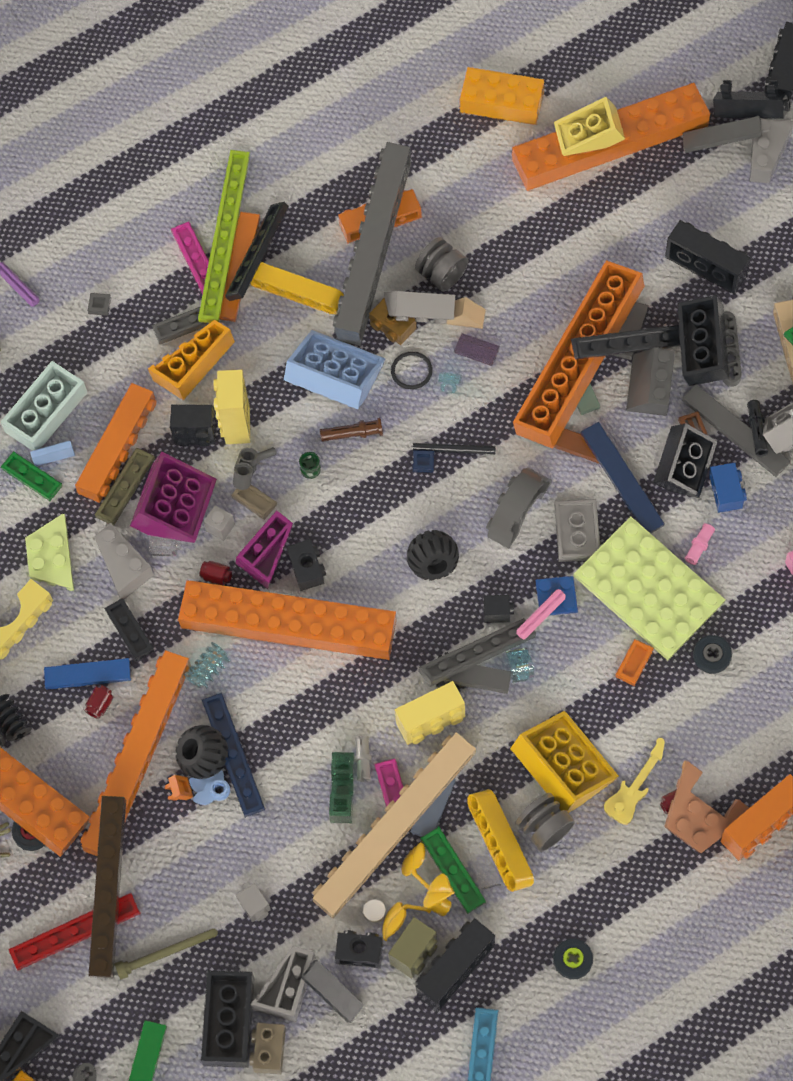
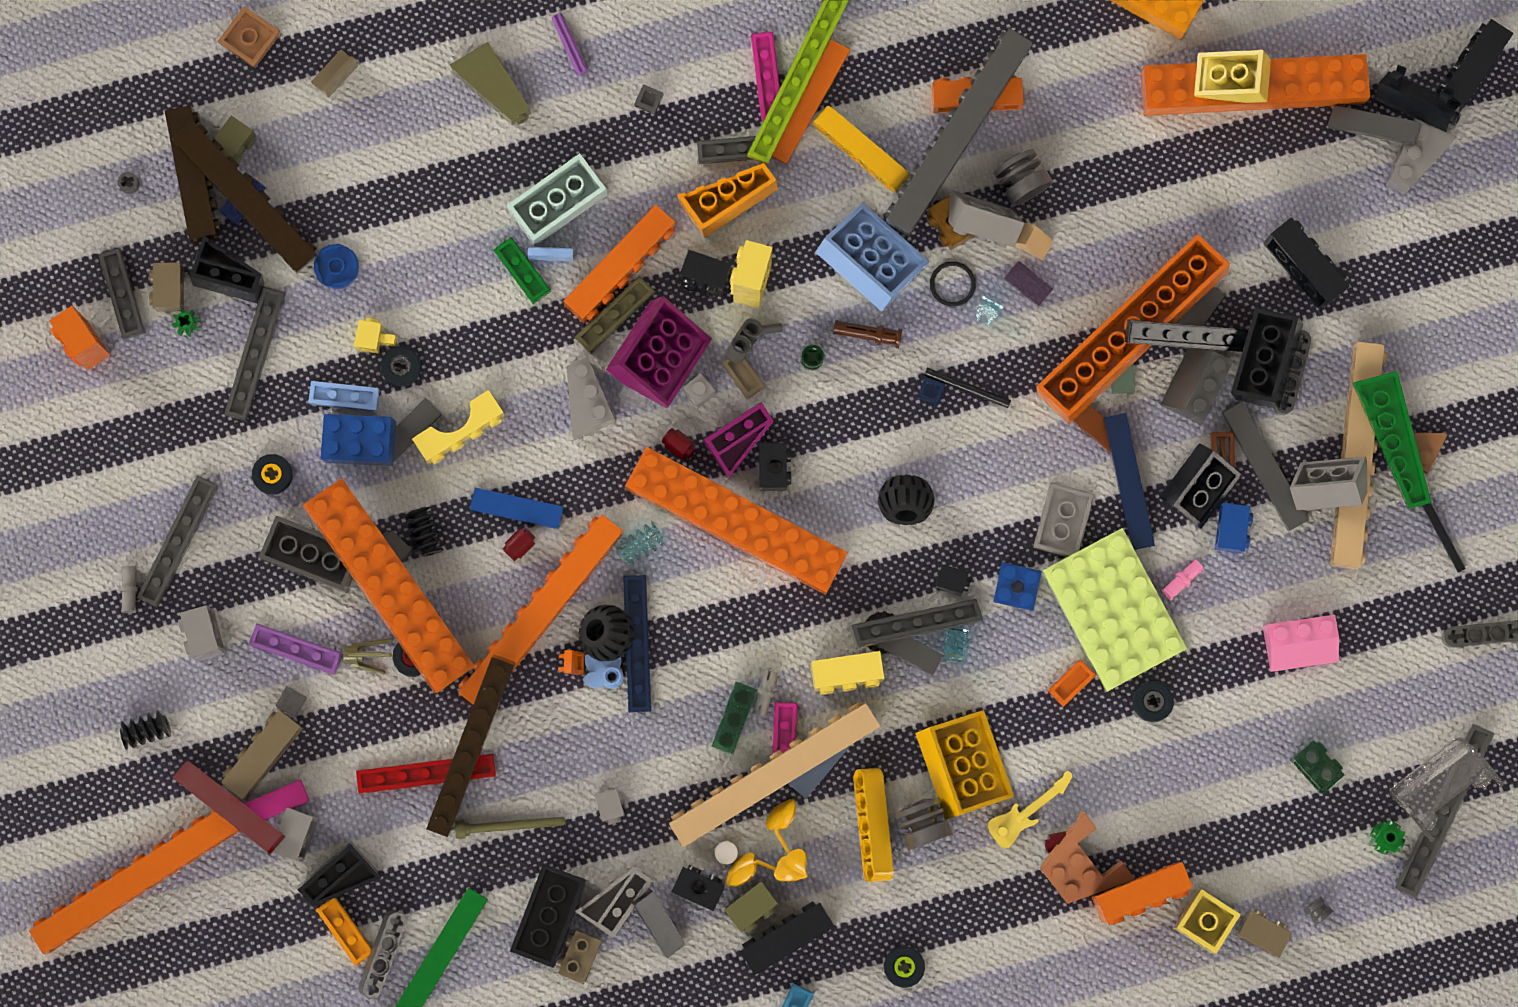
camera: 10 degrees right, 15 degrees up
(50, 554) = (516, 365): yellowish green wing -> none
(129, 629) = (572, 475): black plate -> none
(256, 251) = (833, 94): black tile -> none
(452, 867) = (816, 838): green tile -> none
(515, 505) = (1011, 475): dark grey brick -> none
(541, 614) = (994, 604): bright pink axle -> none
(755, 410) = (1293, 450): black pin -> none

